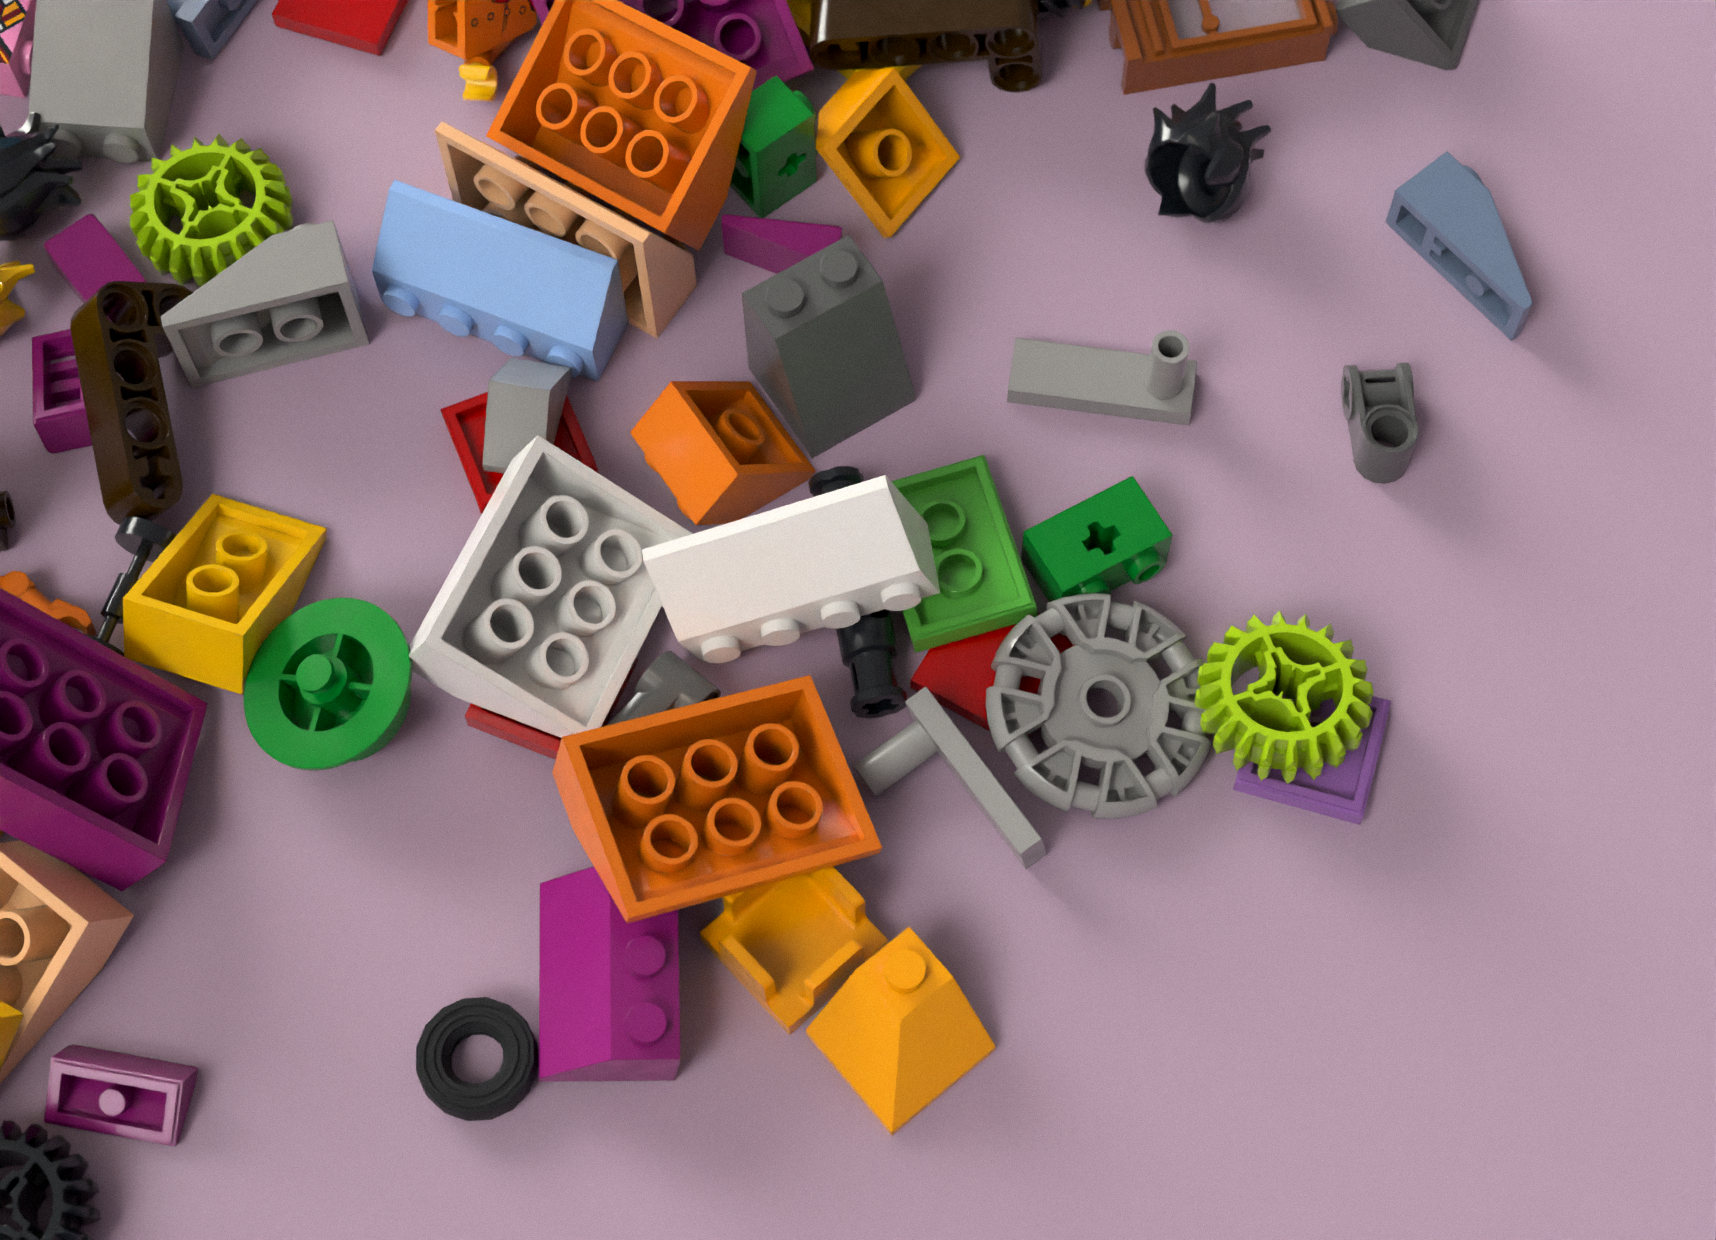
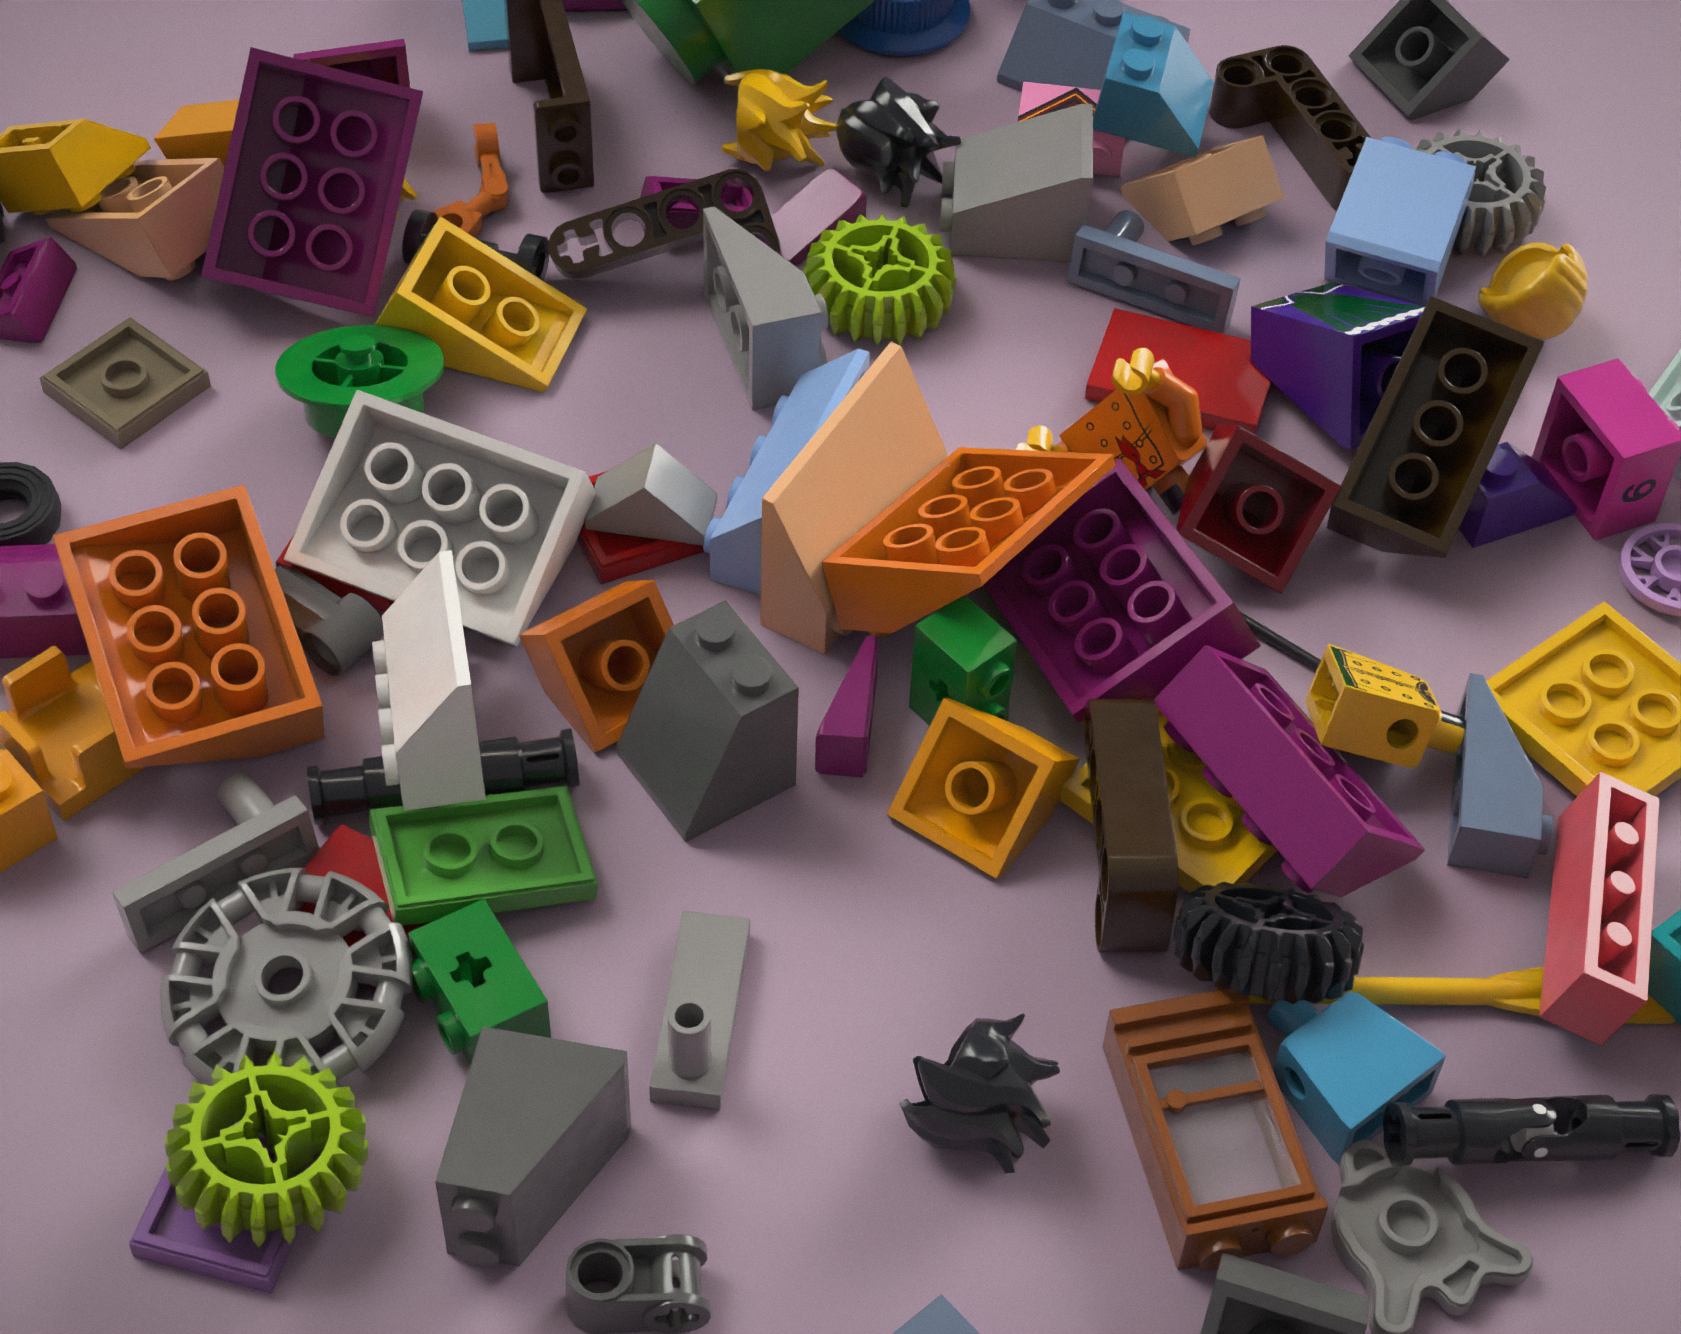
camera: 85 degrees right, 15 degrees down
(280, 960) = (125, 382): none -> dark tan tile
(1282, 488) = (527, 1141): none -> dark grey slope

